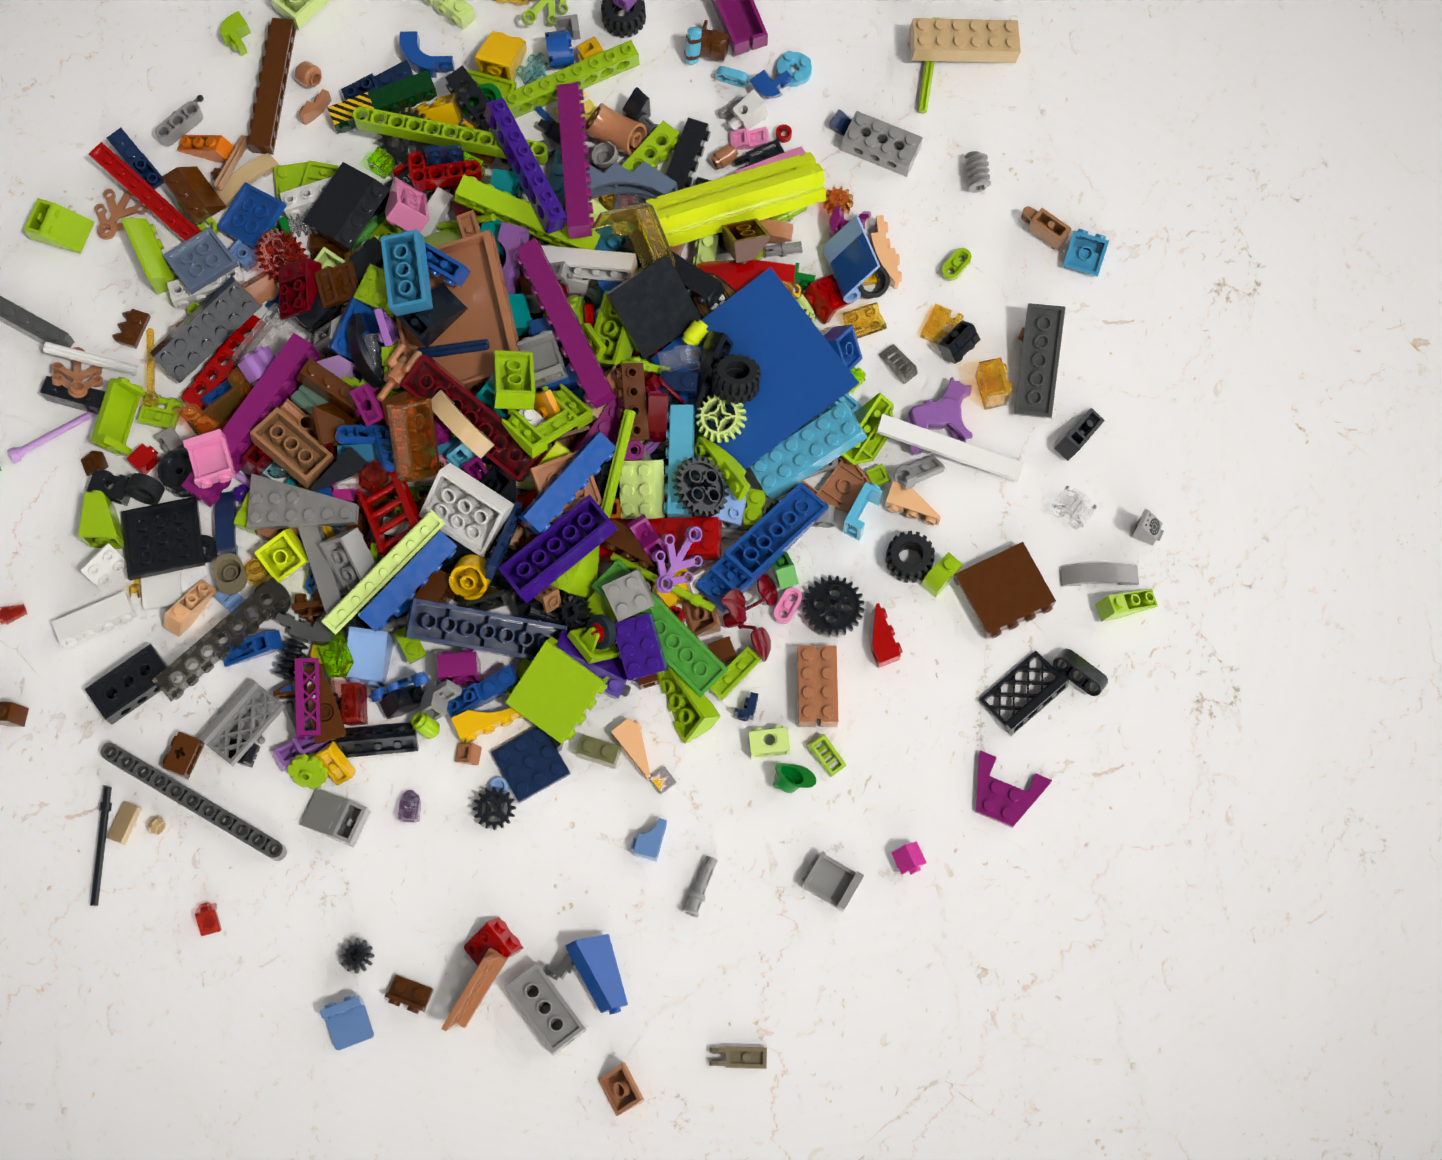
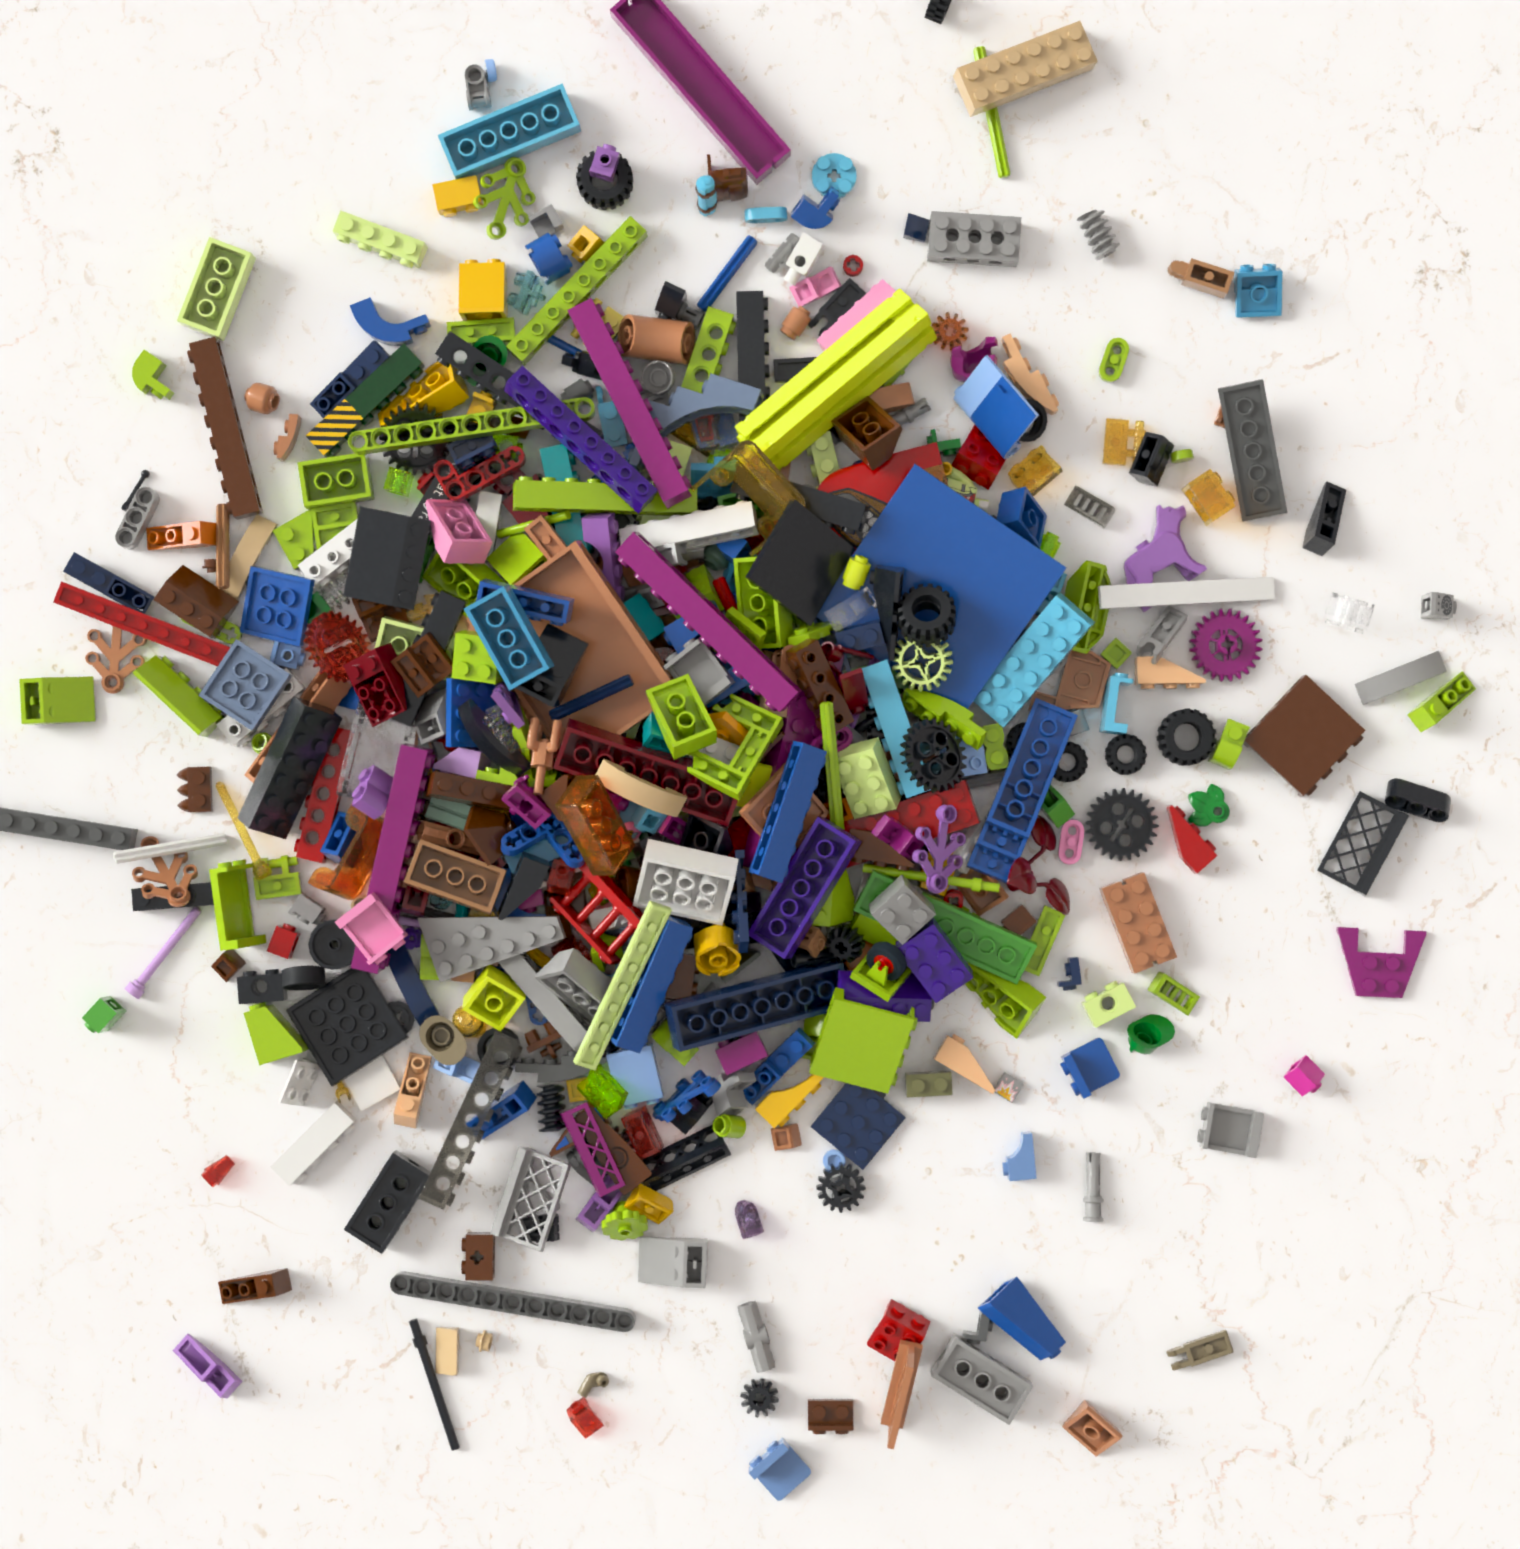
camera: 15 degrees left, 15 degrees up
(227, 891) = (593, 1380): none -> dark tan arm
(335, 144) = (335, 480): none -> lime brick
(375, 904) = (756, 1336): none -> light grey piece
(689, 106) = (727, 273): none -> blue axle
(734, 787) = (1089, 1067): none -> blue bracket
(813, 553) = (1080, 765): none -> black tyre
(857, 565) = (1139, 754): none -> black tyre
(906, 616) = (1205, 805): none -> green plate
(970, 484) = (1223, 623): none -> magenta gear
(983, 349) = (1182, 456): none -> lime tile

